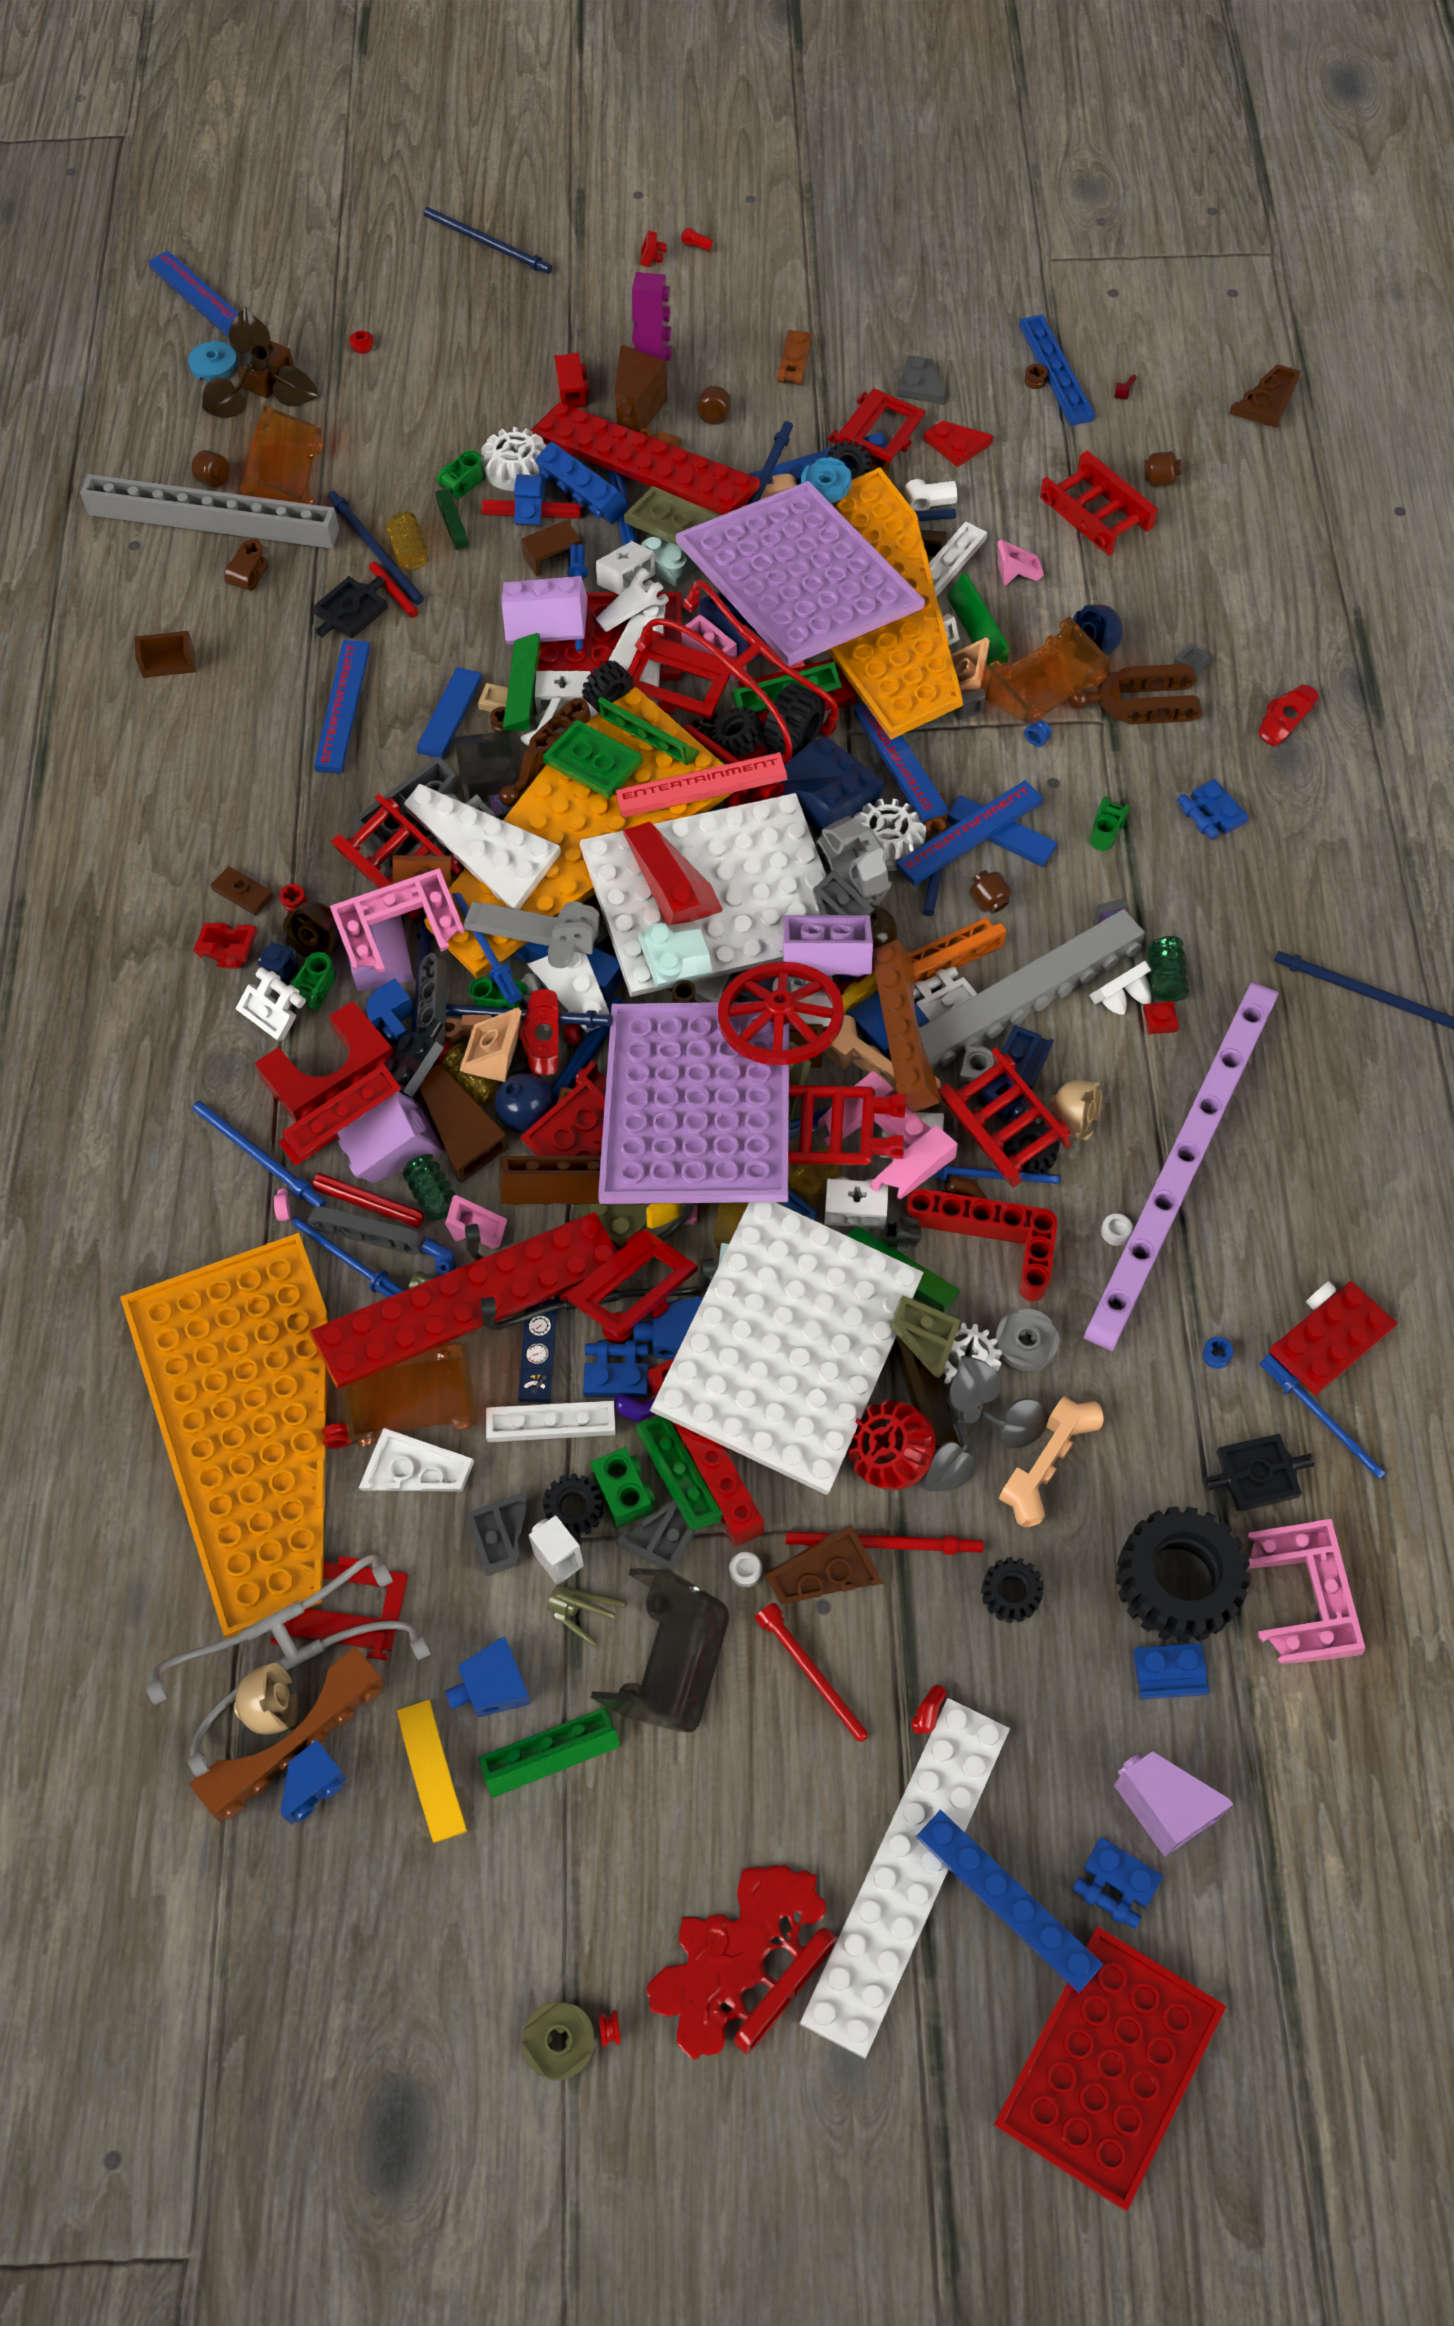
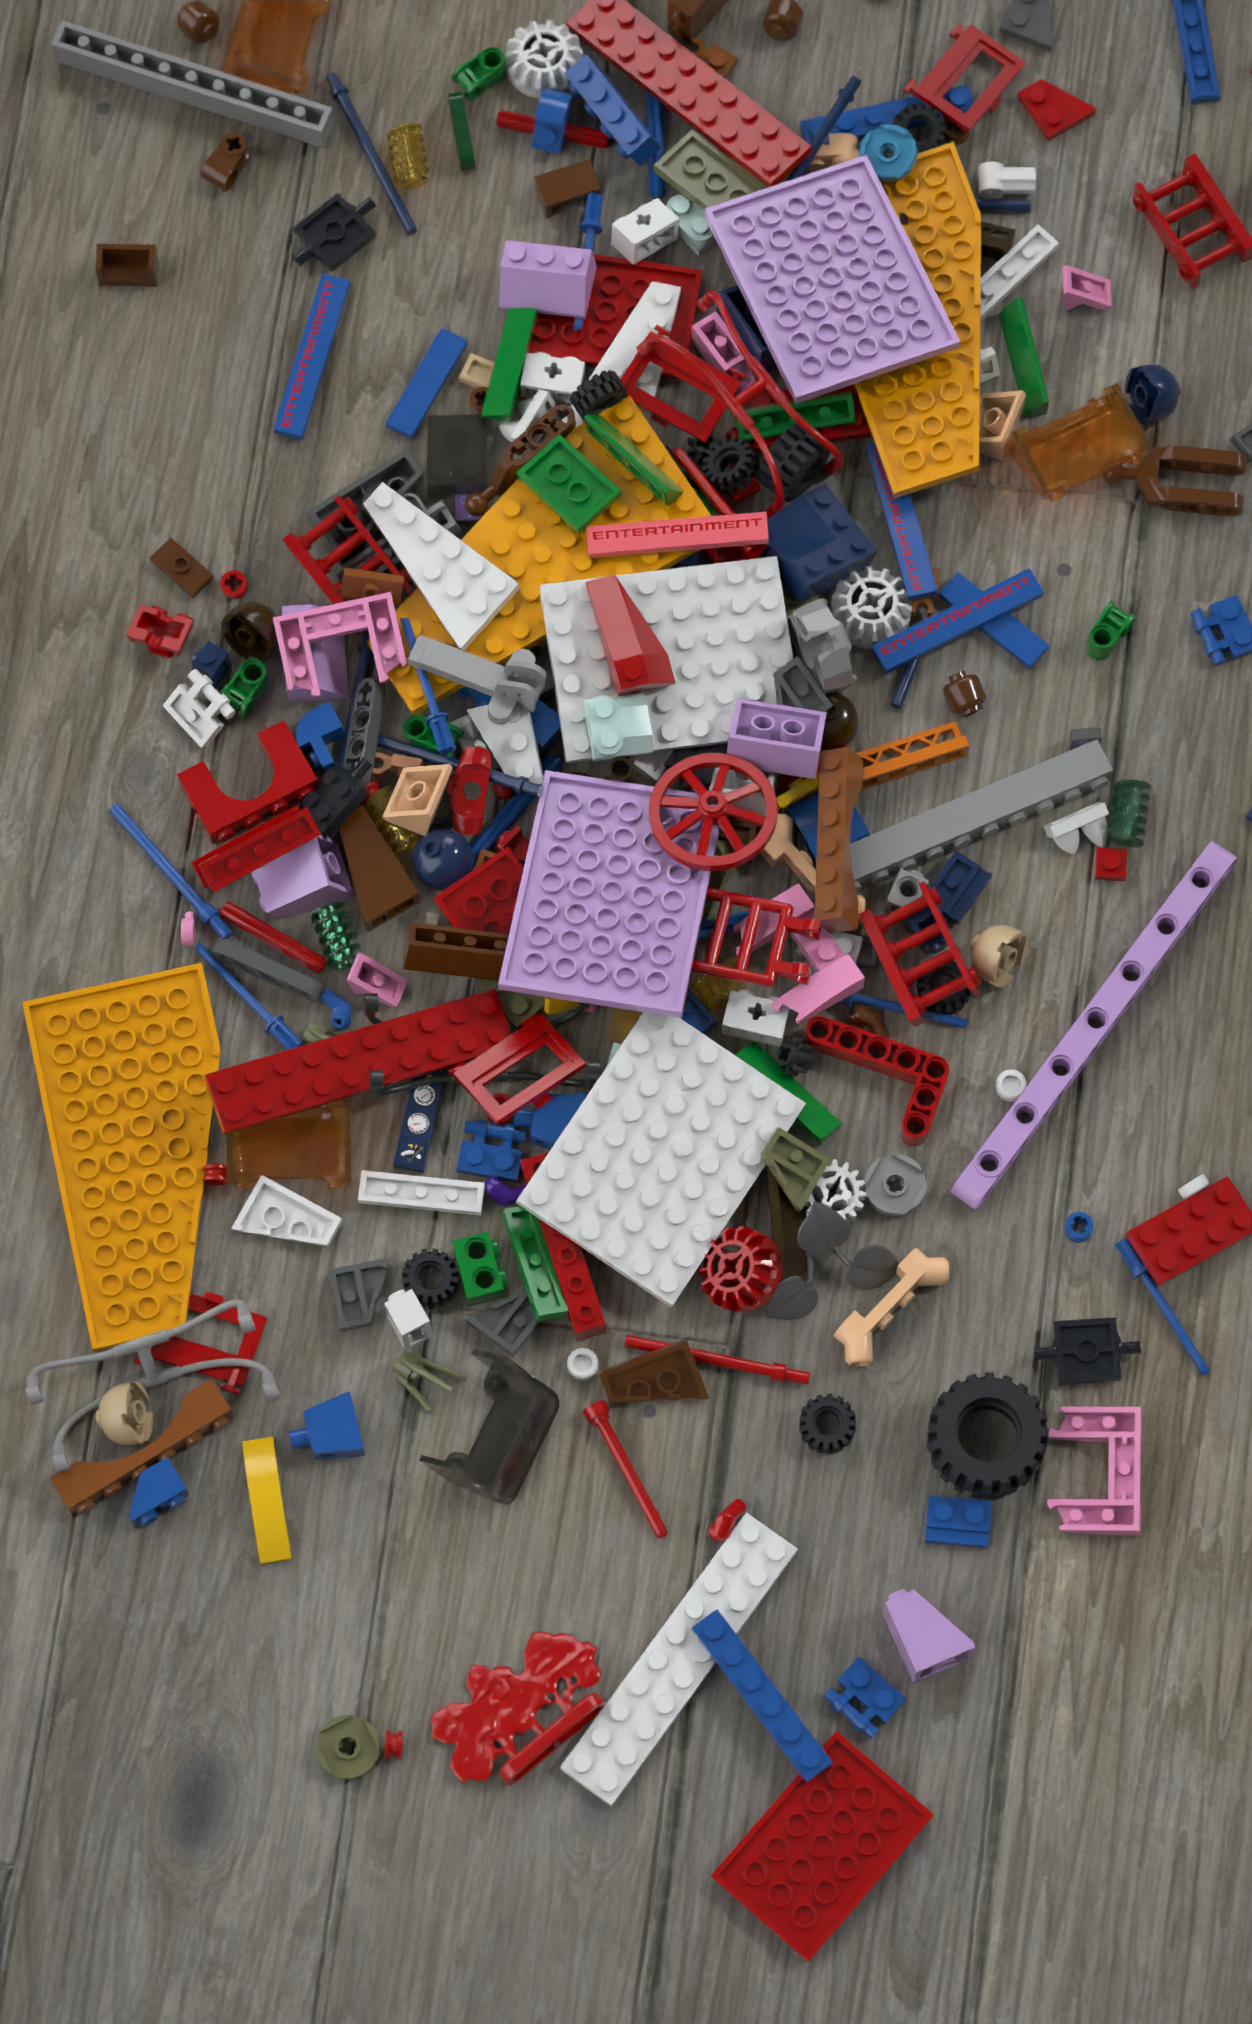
camera: 10 degrees right, 10 degrees up
(394, 590) = (385, 213): red bar -> none
(548, 1752) = (375, 1501): green slope -> none
(632, 601) = (643, 279): white flag -> none
(944, 999) = (890, 811): white plate -> none
(972, 704) = (994, 462): dark grey tile -> none
(1035, 370) = (1158, 37): reddish brown bush -> none
(1038, 733) = (1058, 510): blue bush -> none

